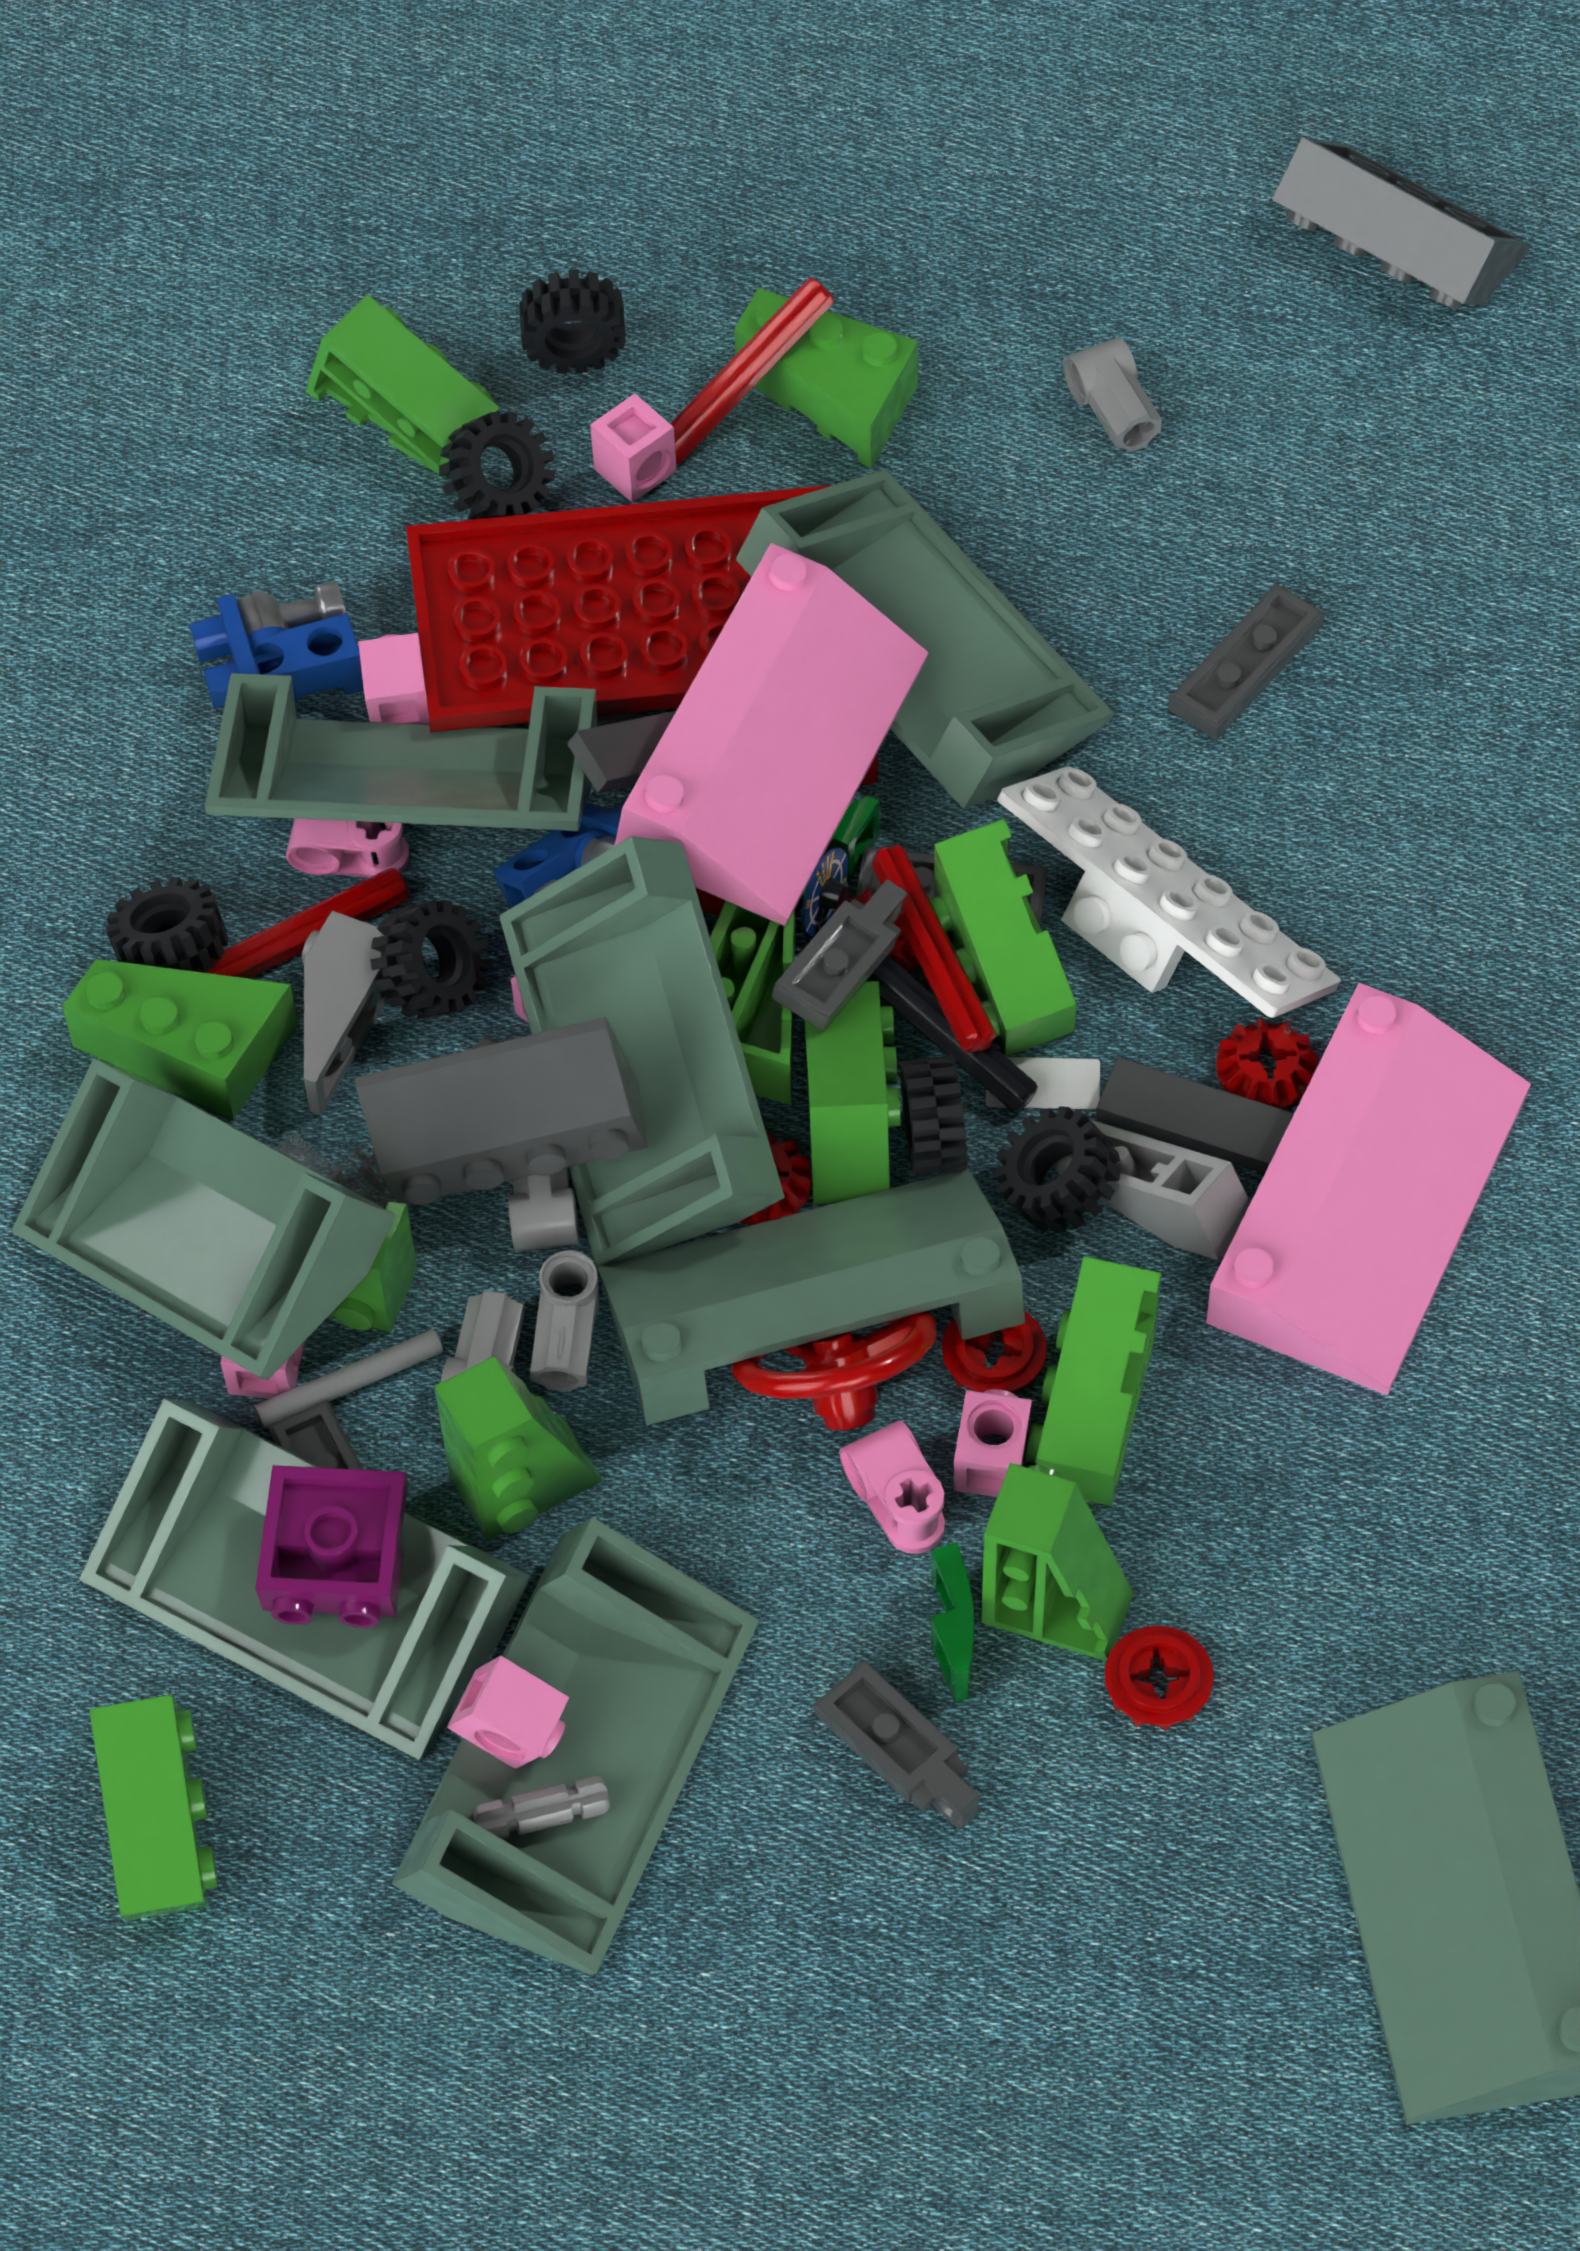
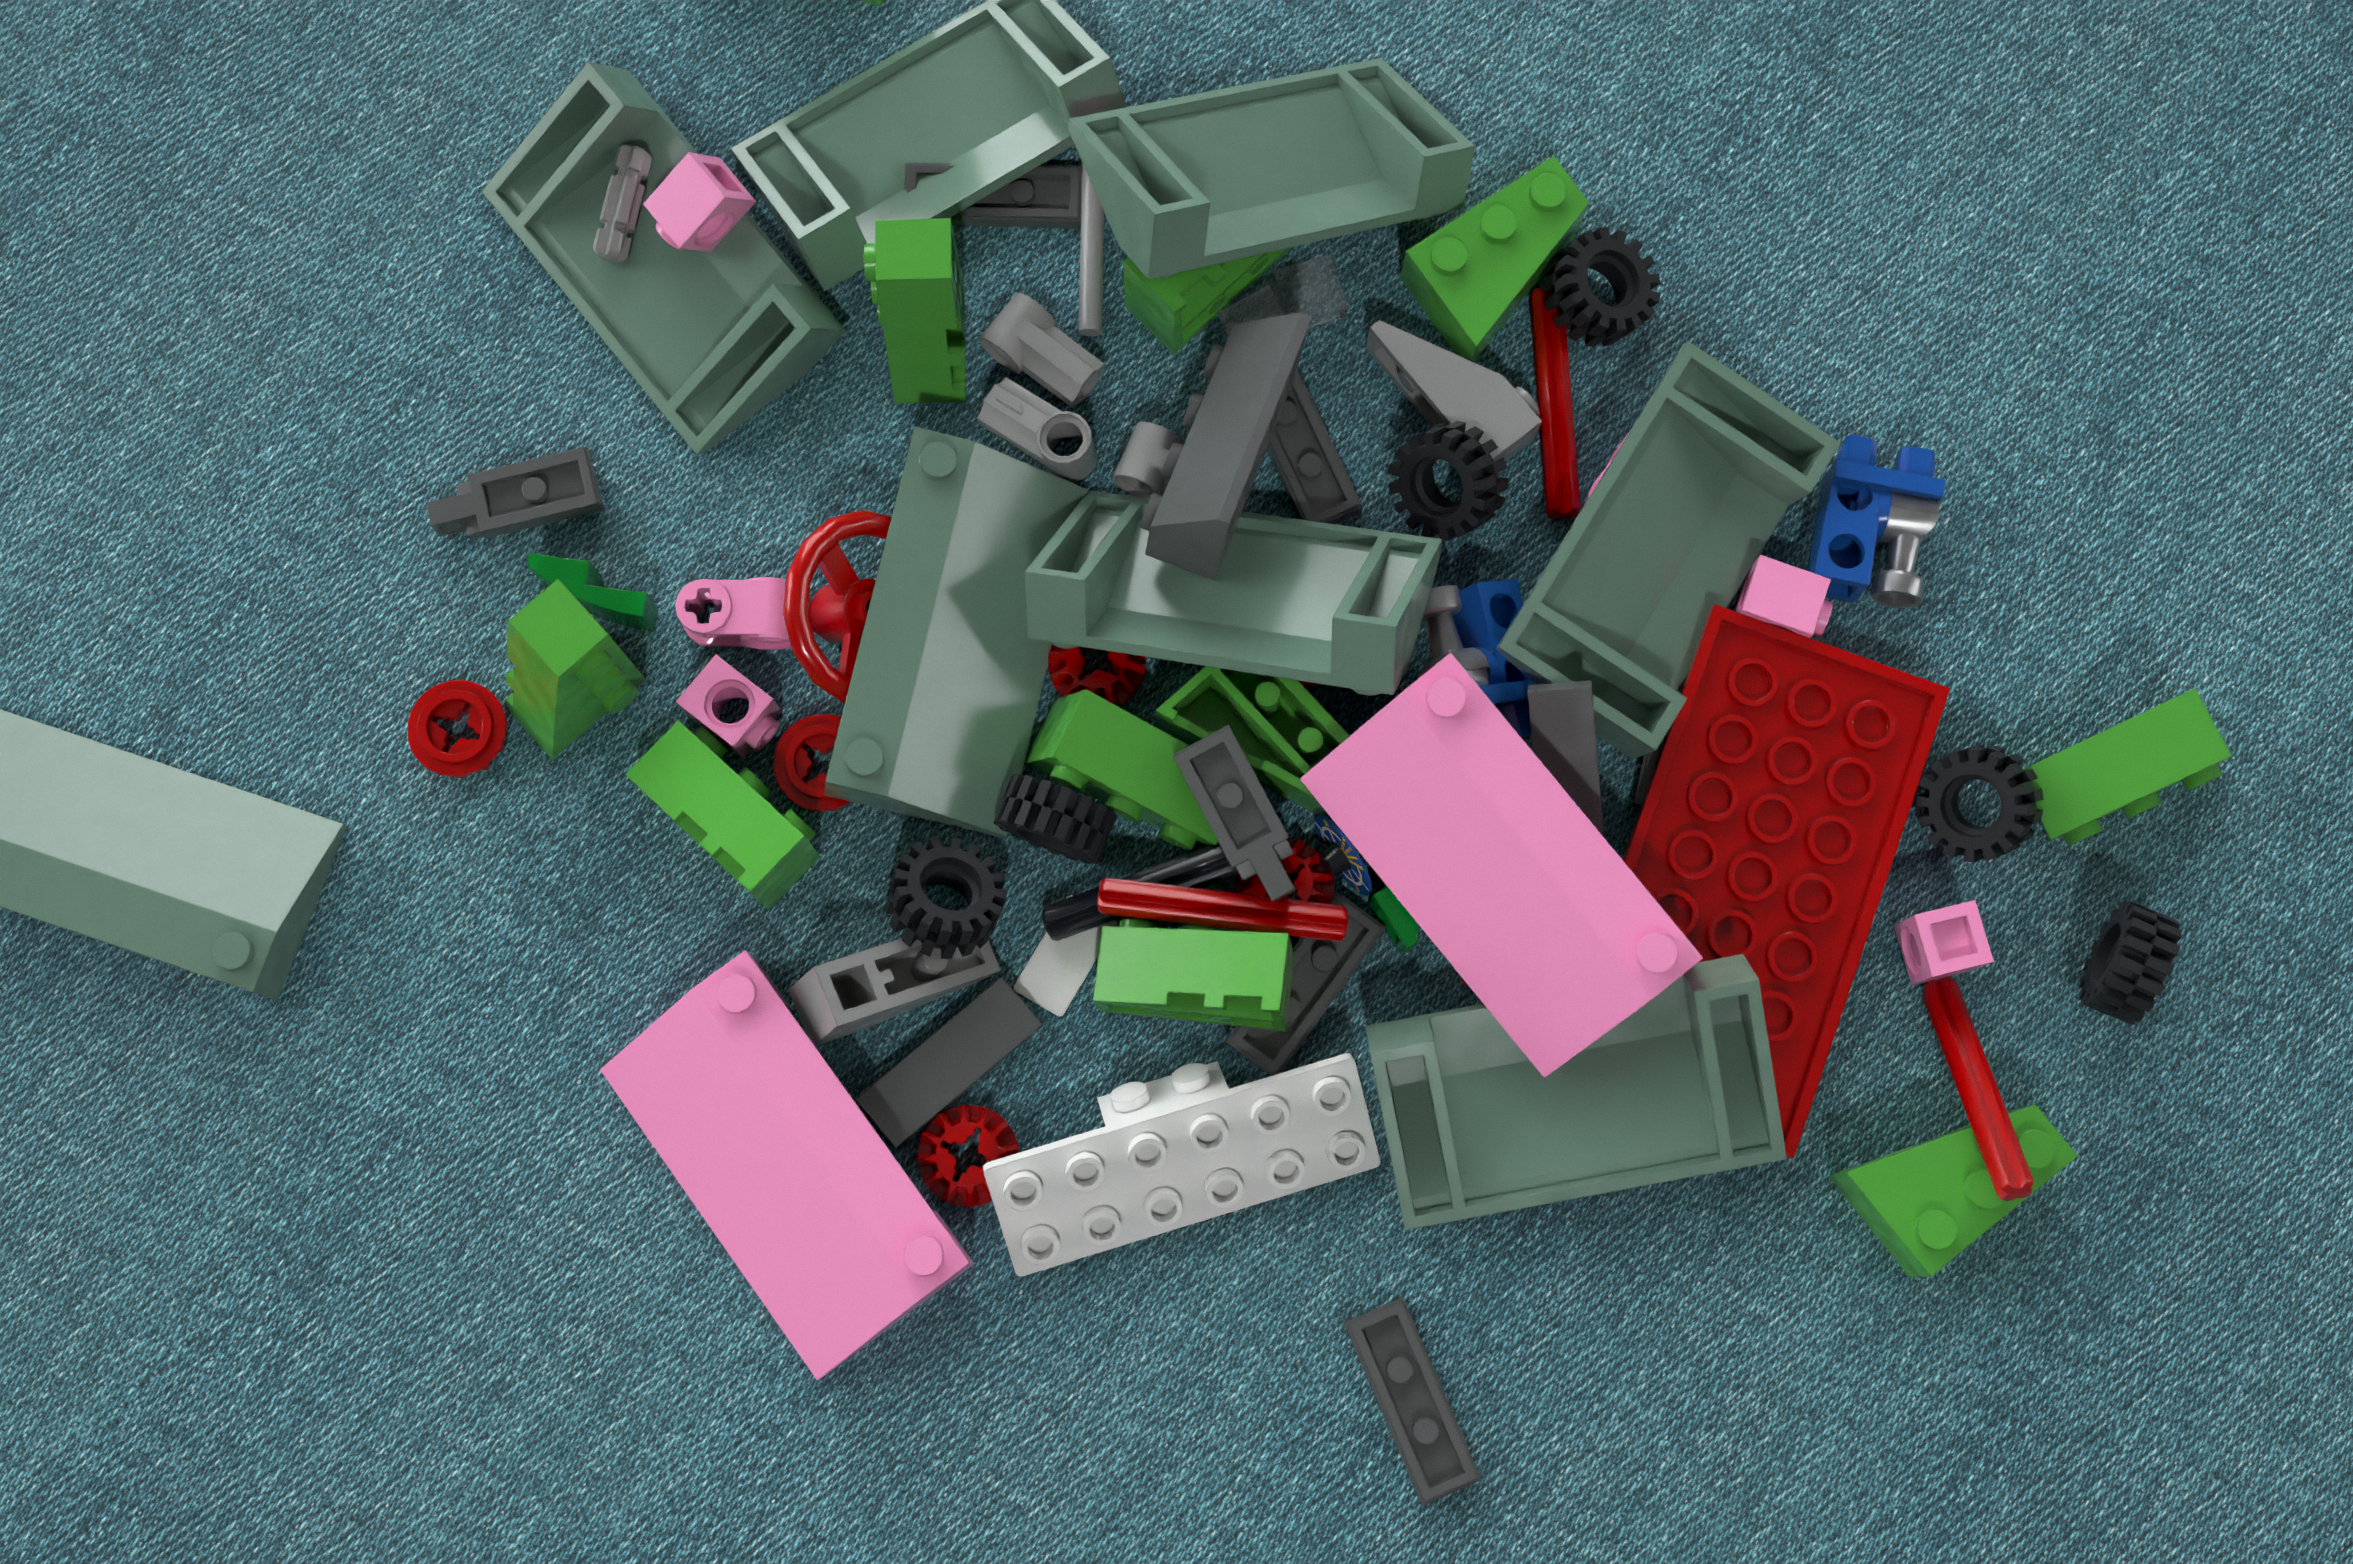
camera: 115 degrees right, 20 degrees up
(332, 1544) = (925, 144): magenta plate -> none
(1109, 383) = (1808, 1455): light grey piece -> none

